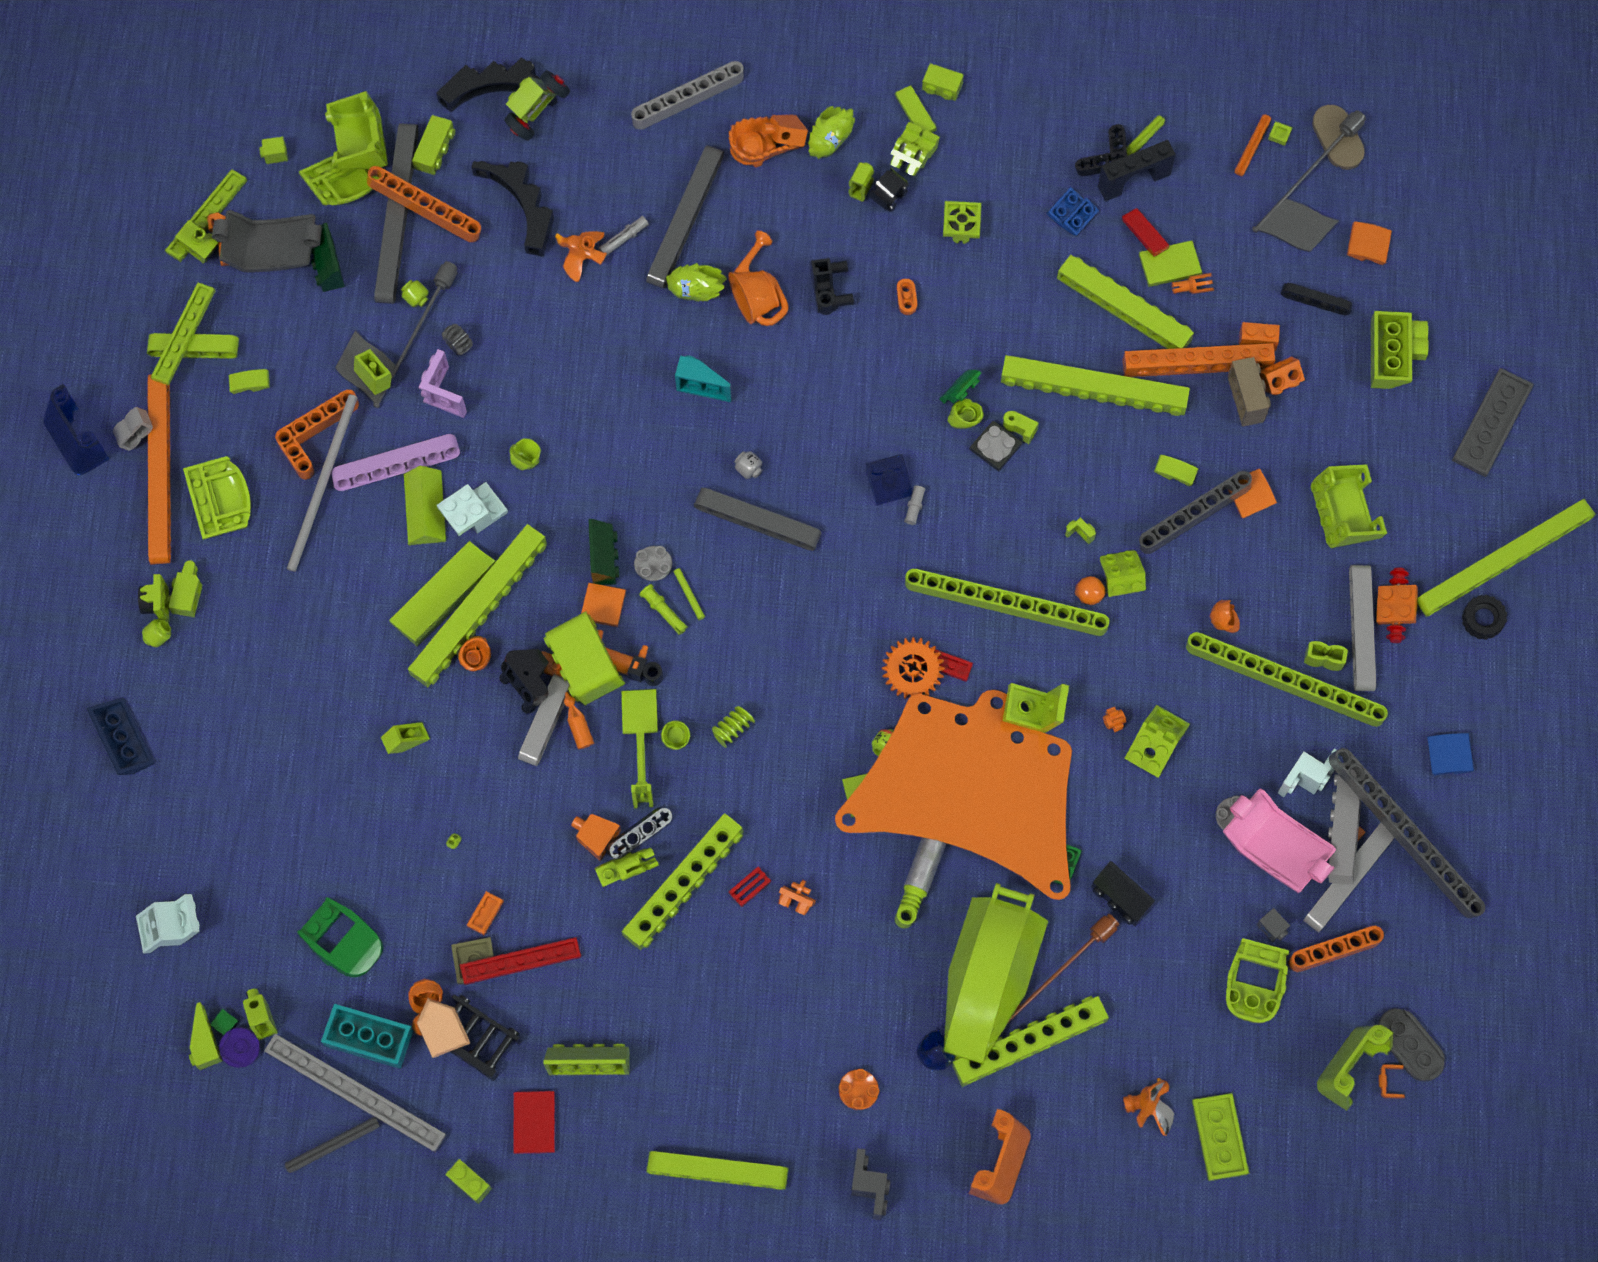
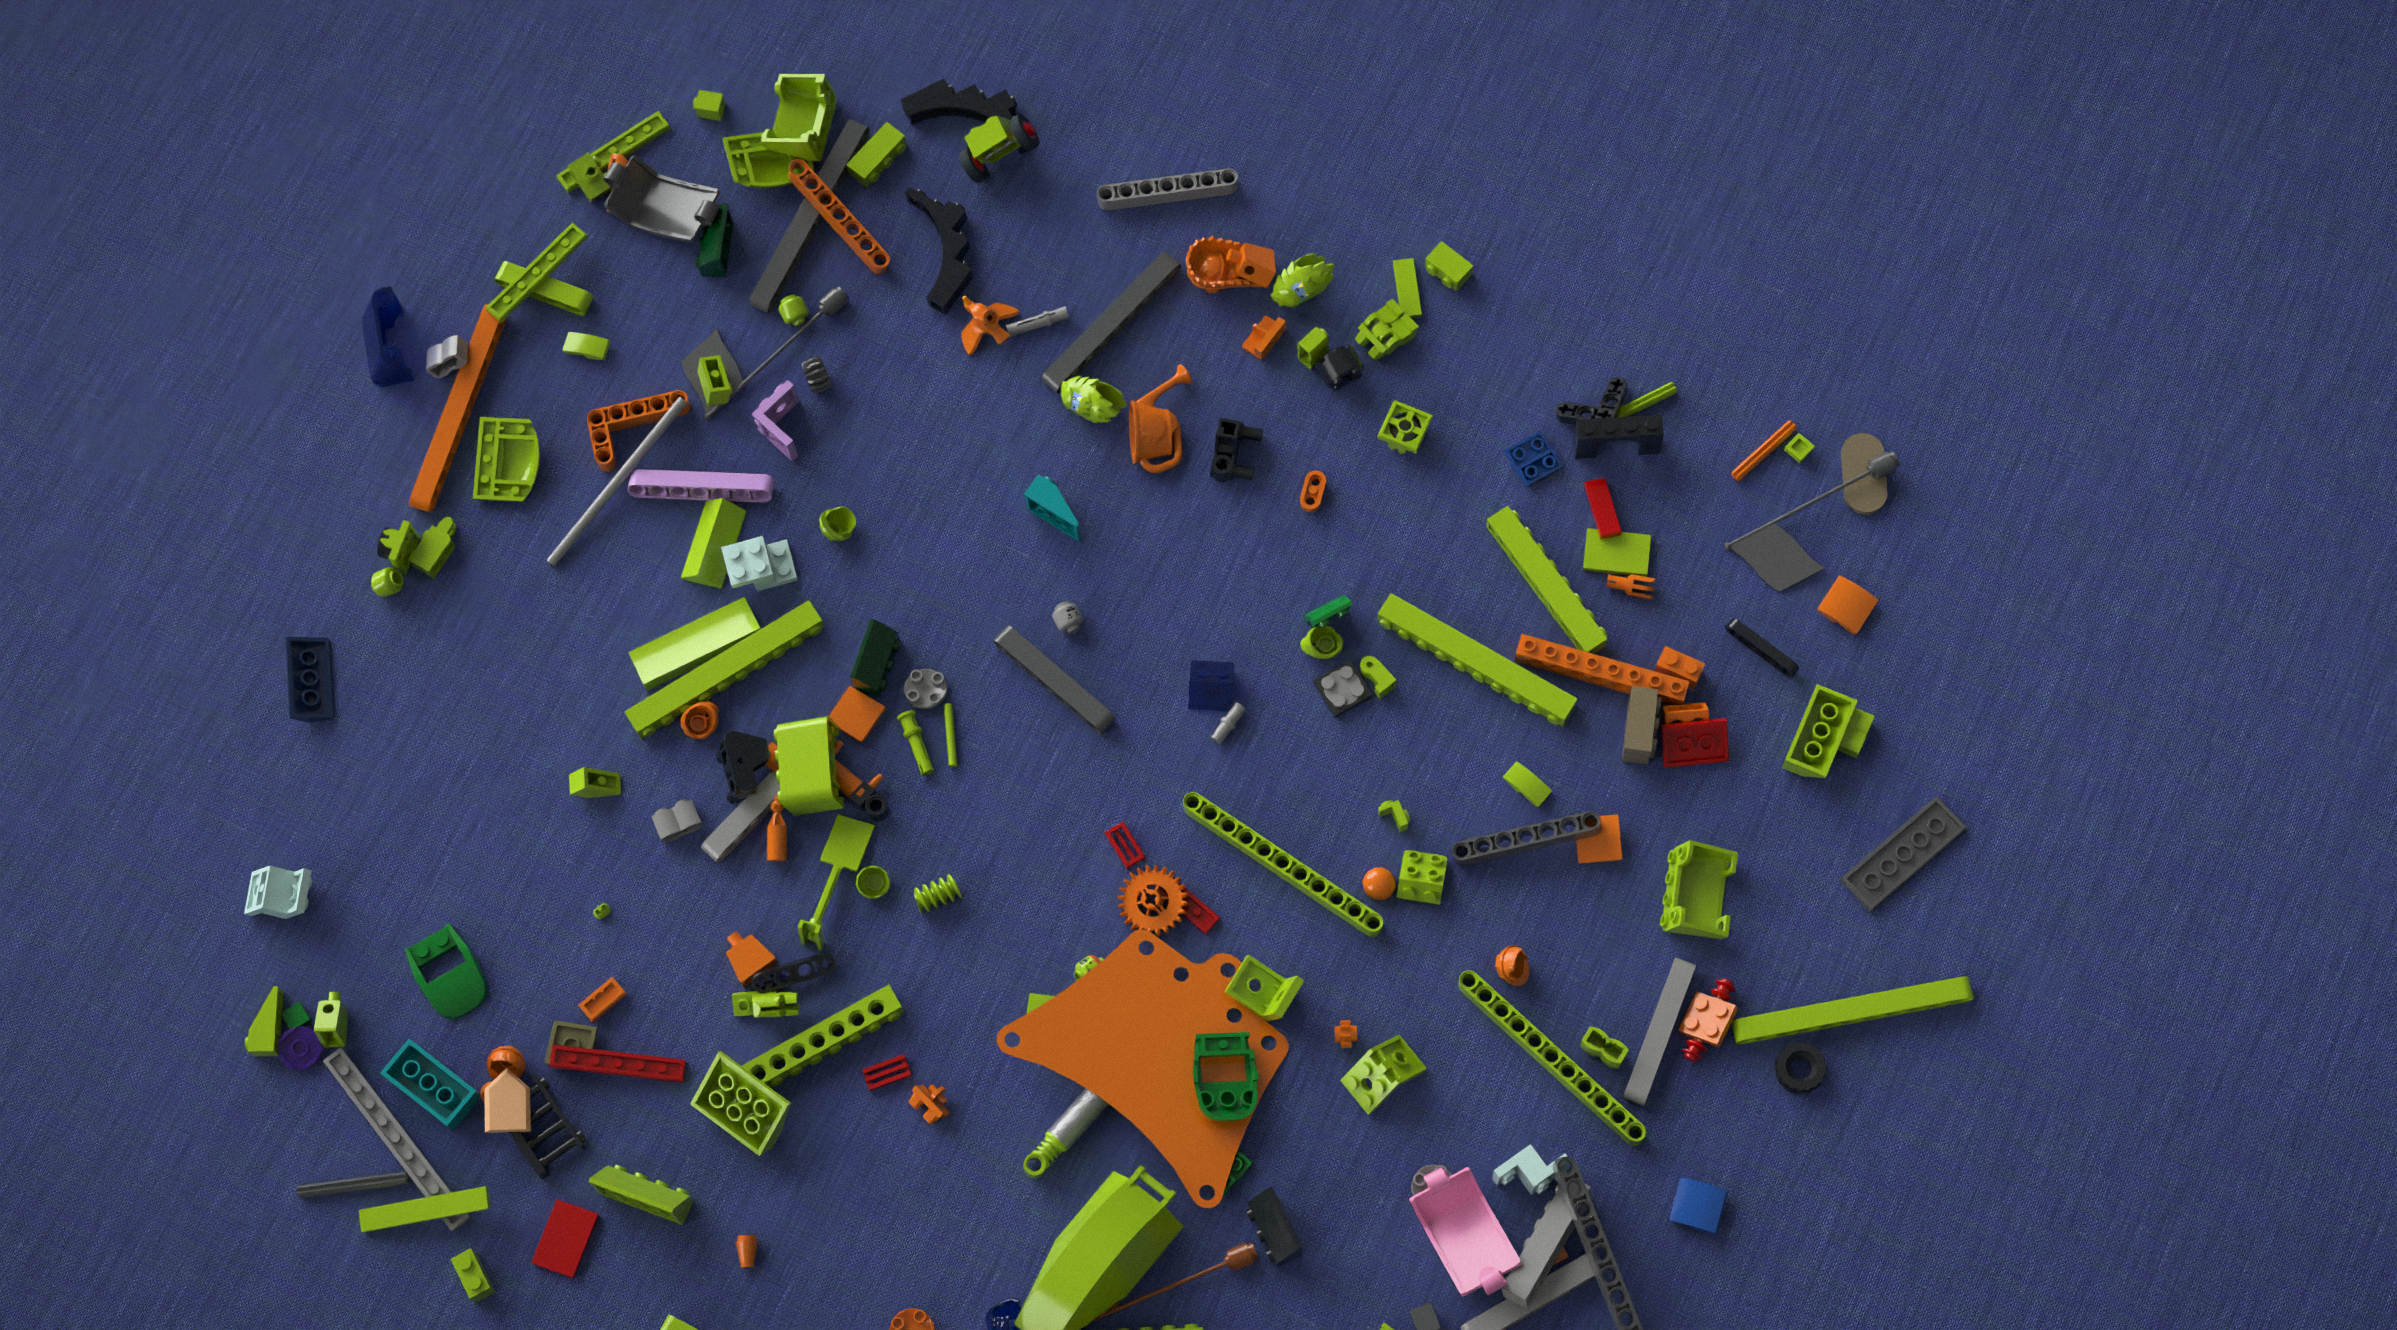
camera: 25 degrees right, 0 degrees up
(404, 1142) = (425, 1209): none -> lime tile
(488, 743) = (677, 821): none -> light grey brick
(642, 954) = (741, 1104): none -> lime slope
(693, 1074) = (747, 1250): none -> orange cone
(815, 187) = (1264, 336): none -> orange panel
(867, 639) = (1134, 861): none -> red tile
(1040, 806) = (1225, 1099): none -> green slope
(1296, 390) = (1695, 742): none -> red tile

